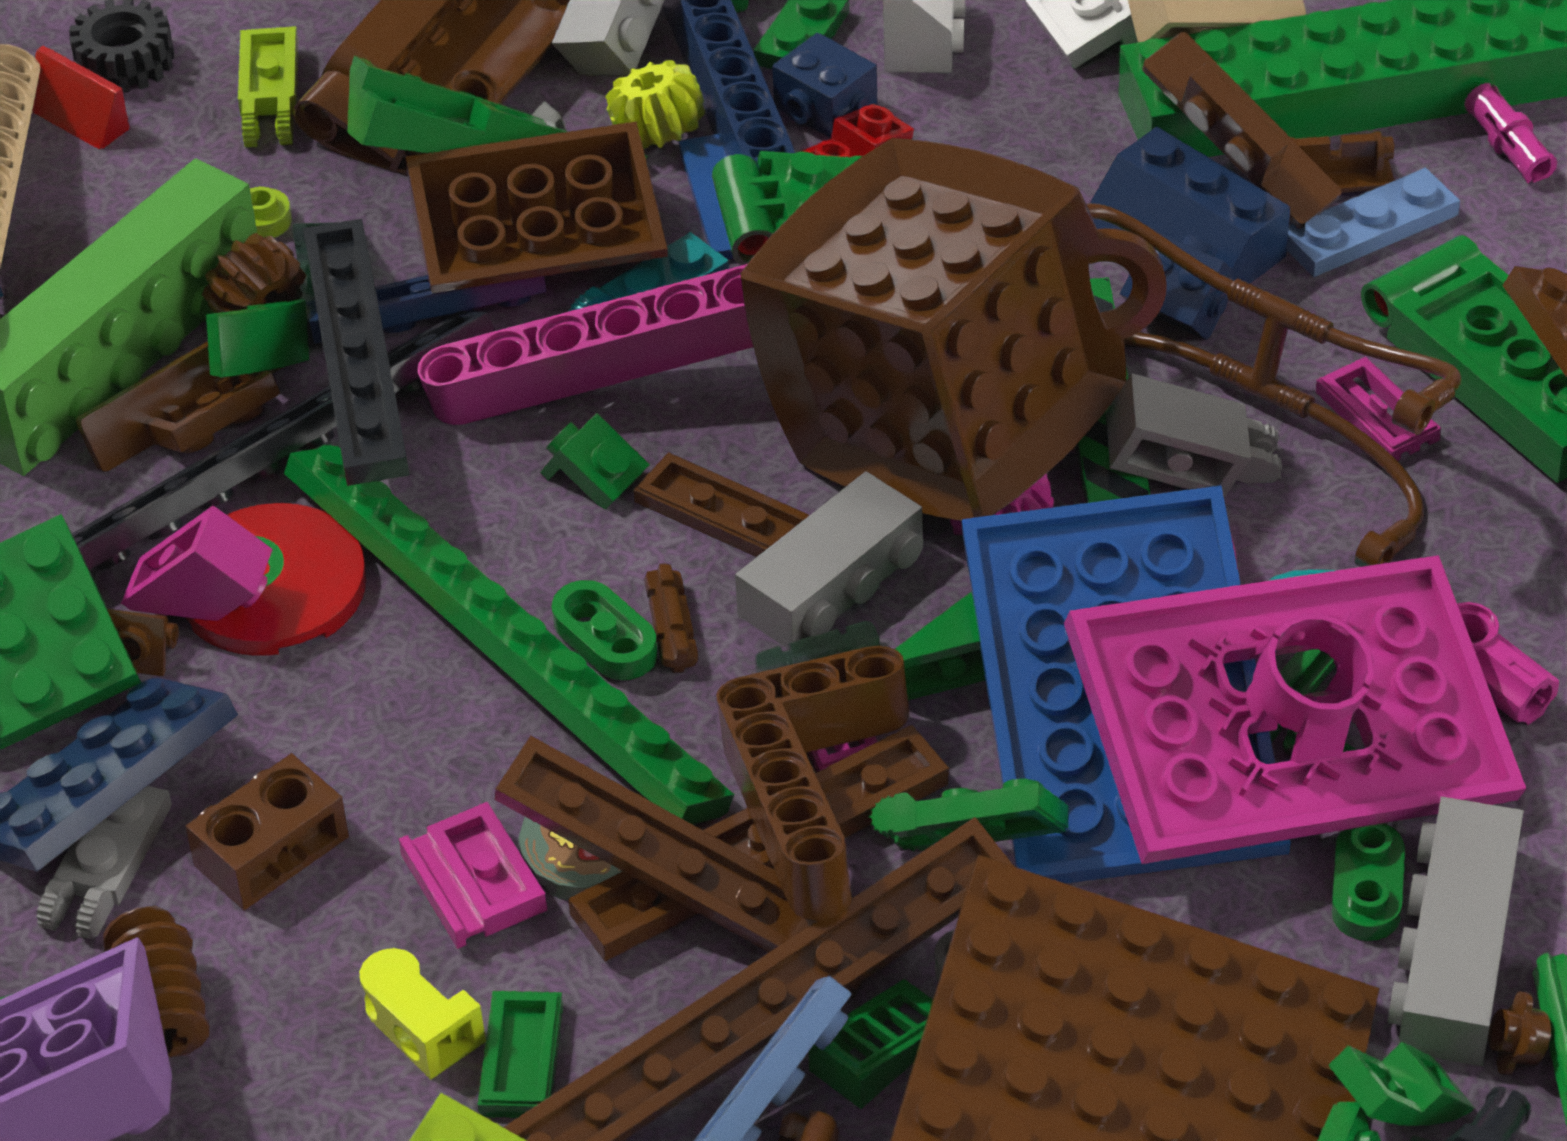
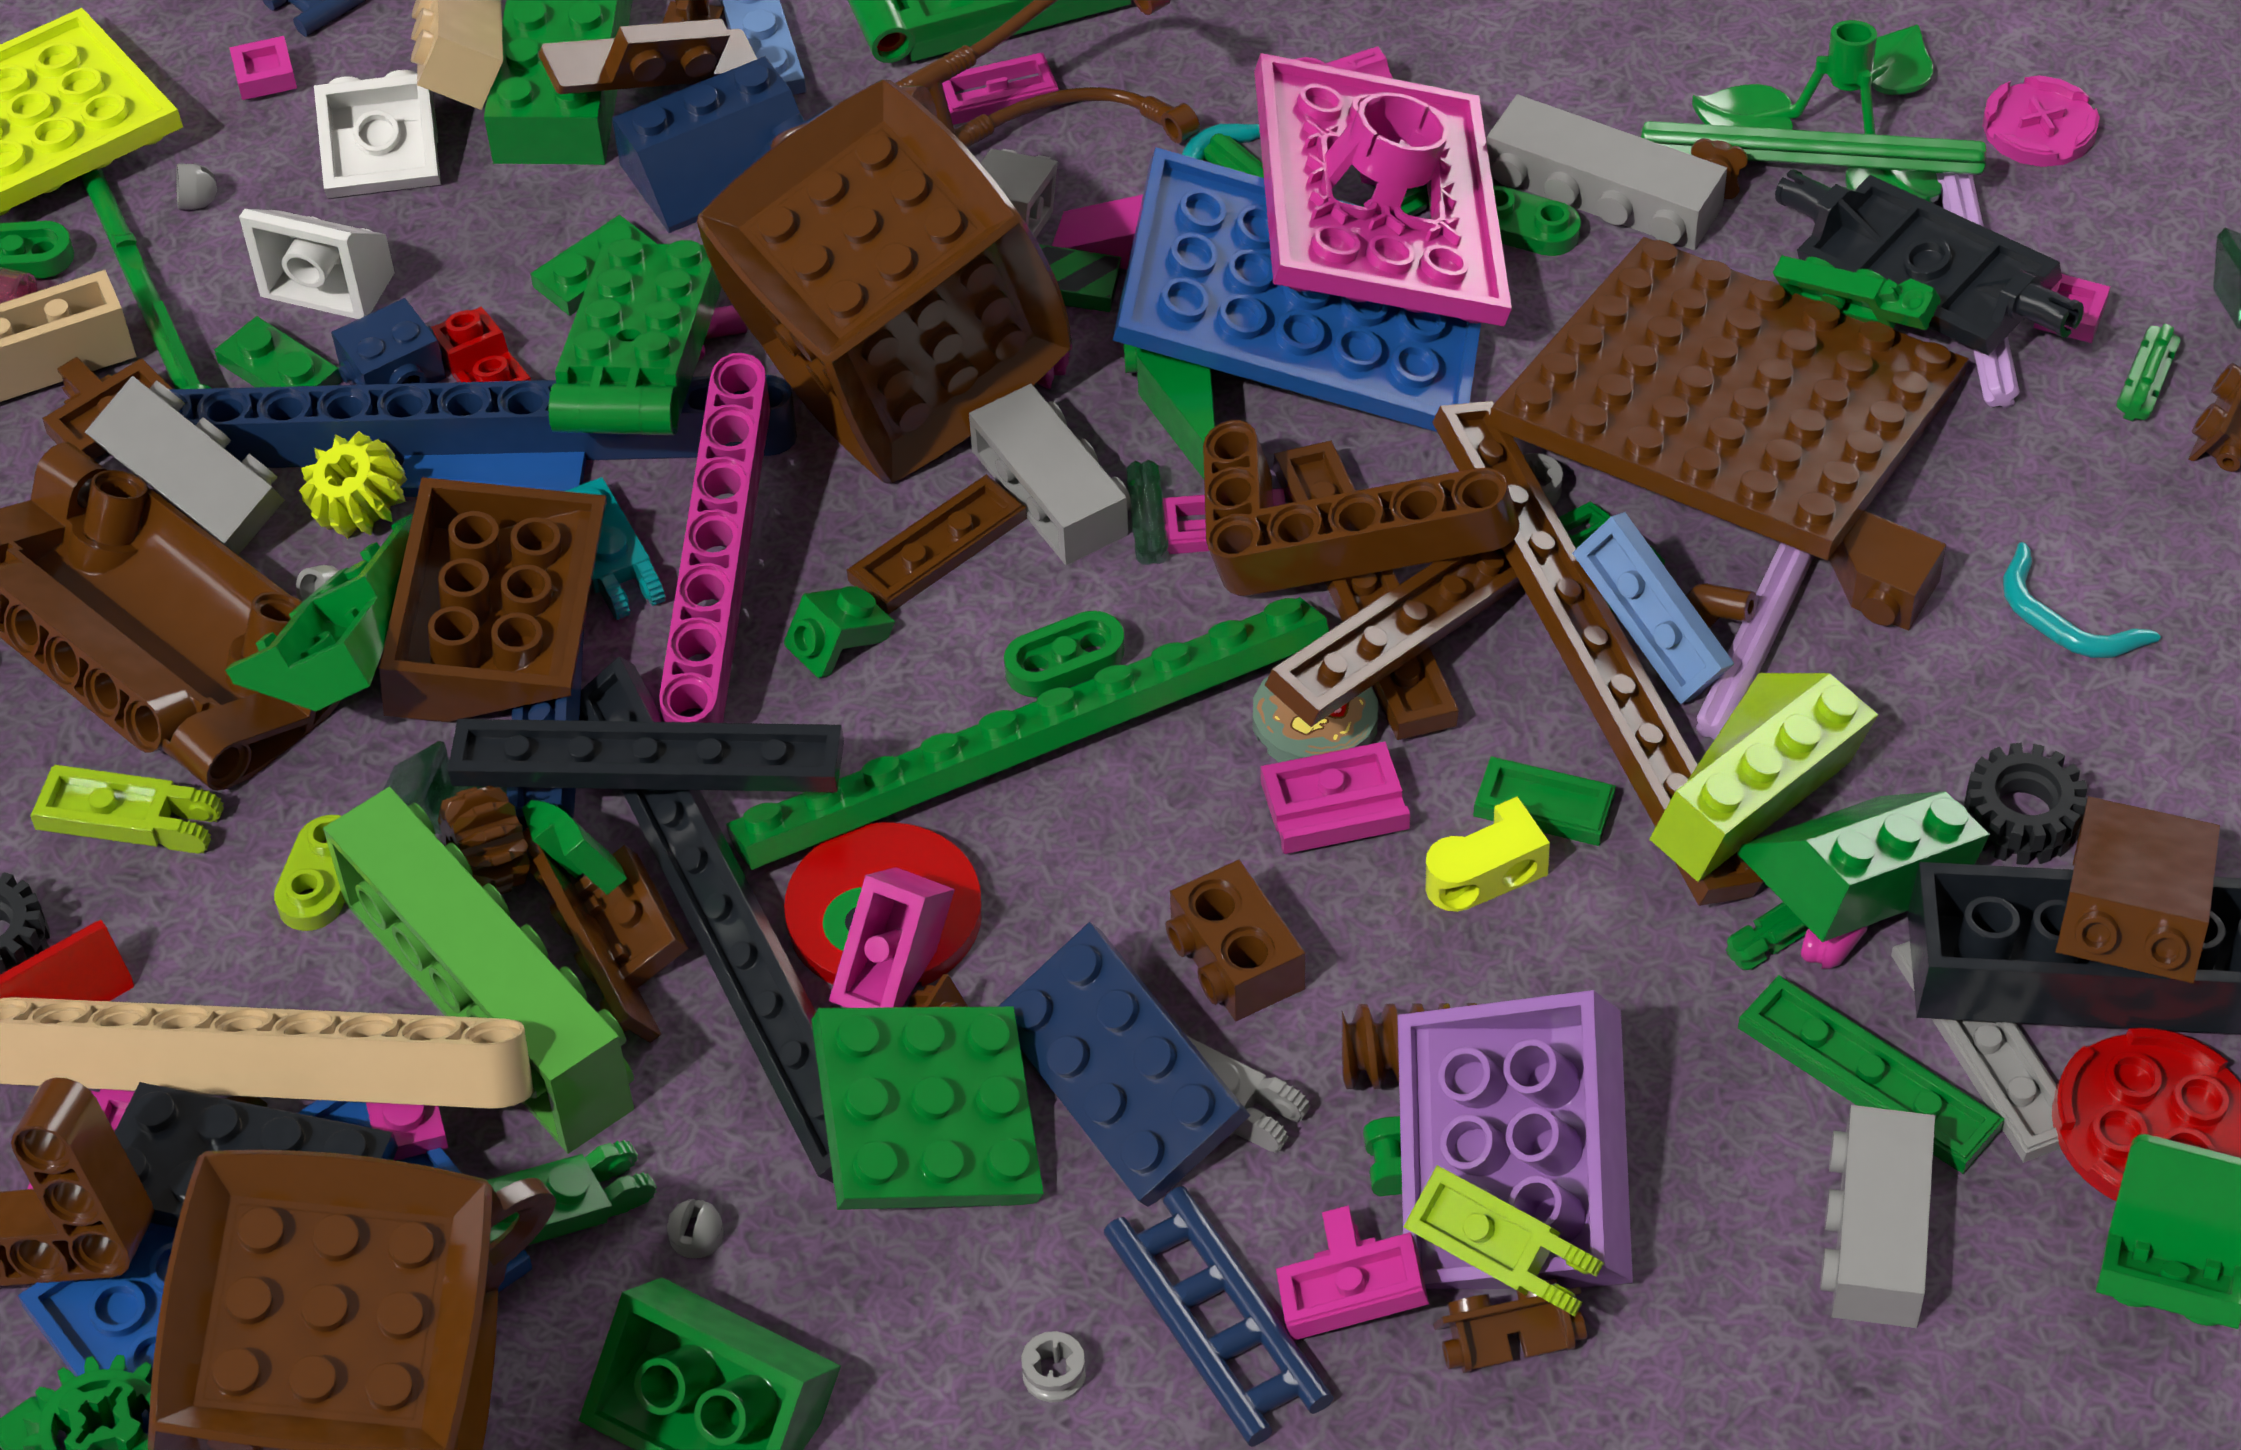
camera: 75 degrees left, 5 degrees up
(671, 618) = (1058, 604): reddish brown axle -> none
(1013, 812) = (1408, 429): green hinge -> none
(1402, 1087) = (1756, 238): green slope -> none

